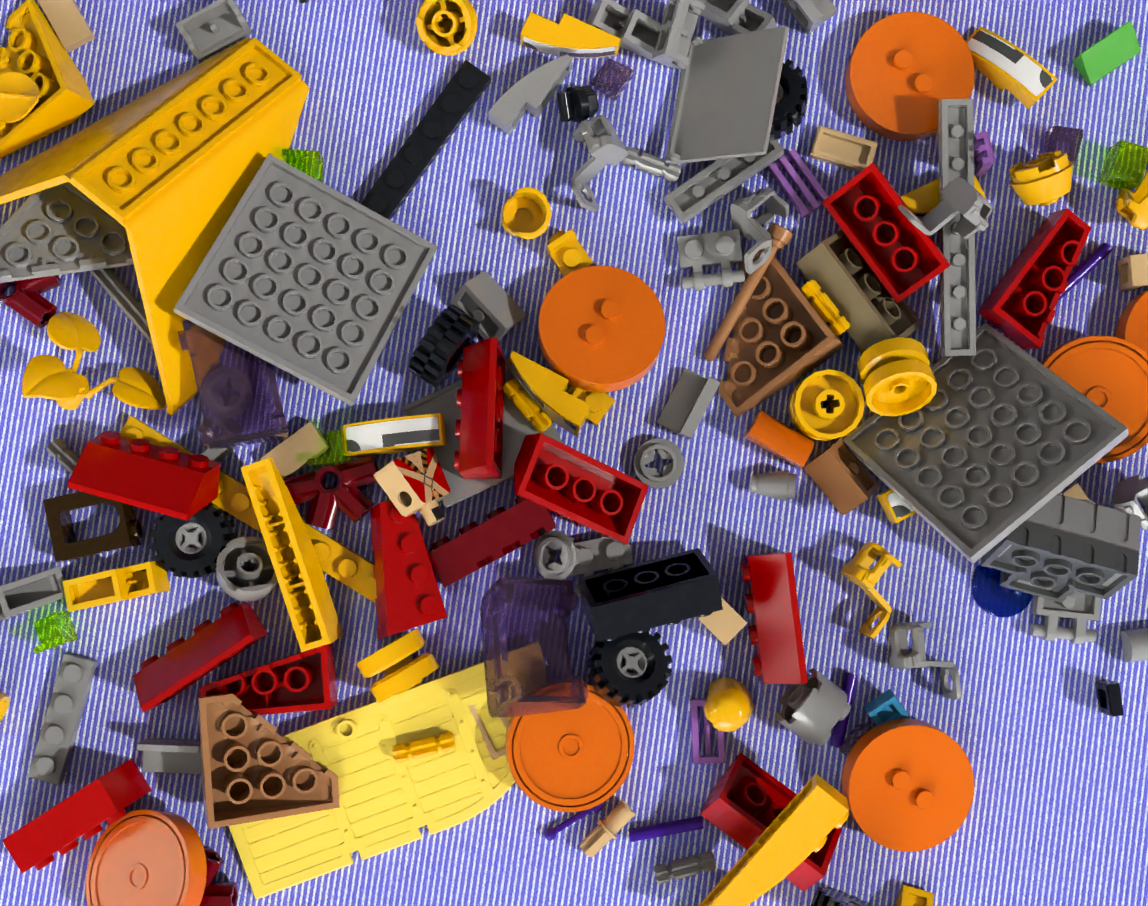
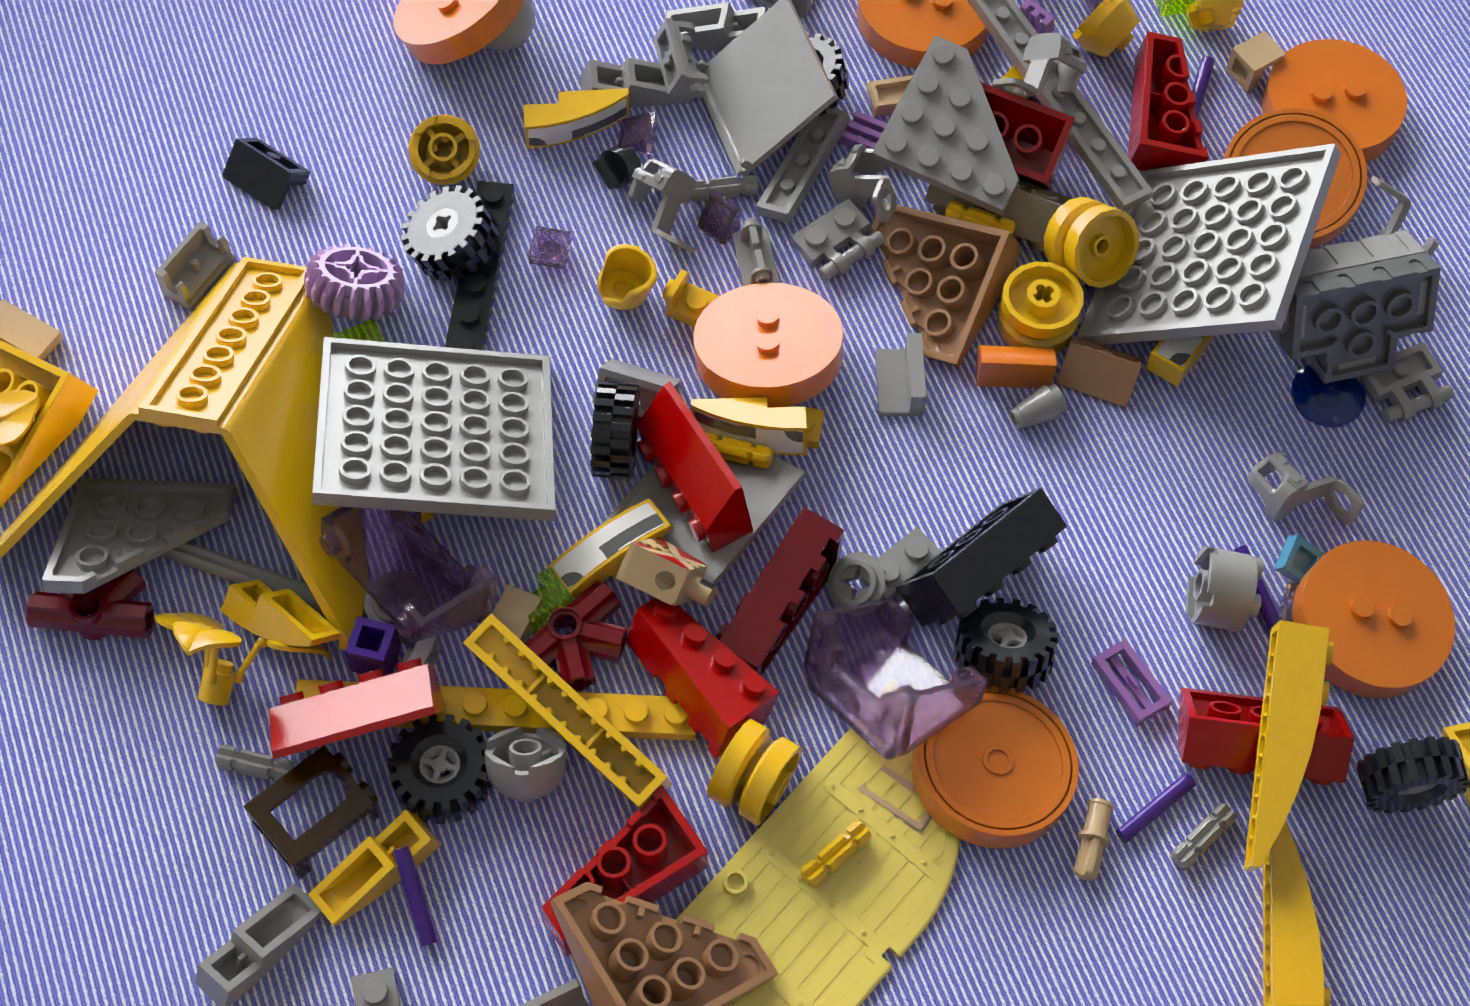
camera: 30 degrees left, 25 degrees down
(55, 631) = (327, 957): clear neon green panel -> none
(129, 622) = (415, 896): none -> dark purple piece
(132, 367) = (276, 615): none -> yellow slope
(184, 424) = (372, 646): none -> dark purple brick
(197, 656) = (518, 887): red slope -> none
(309, 94) = (354, 282): none -> lavender gear
(429, 103) = (450, 233): none -> wheel
(488, 150) = (550, 247): none -> clear purple plate
(529, 94) = (563, 180): light grey slope -> none
(550, 833) = (1063, 827): dark purple hinge -> none
(578, 487) = (840, 481): red slope -> none
(630, 192) = (719, 218): none -> clear purple slope
(639, 242) = (754, 254): none -> light grey hinge
(666, 450) = (907, 433): light grey gear -> none
(723, 623) = (1072, 560): tan panel -> none
(728, 704) = (1137, 636): yellow hair -> none
(774, 618) = (1126, 522): red slope -> none
(780, 237) = (892, 253): medium nougat piece -> none
(842, 222) = (948, 131): none -> light grey plate
(859, 574) = (1184, 442): yellow piece -> none

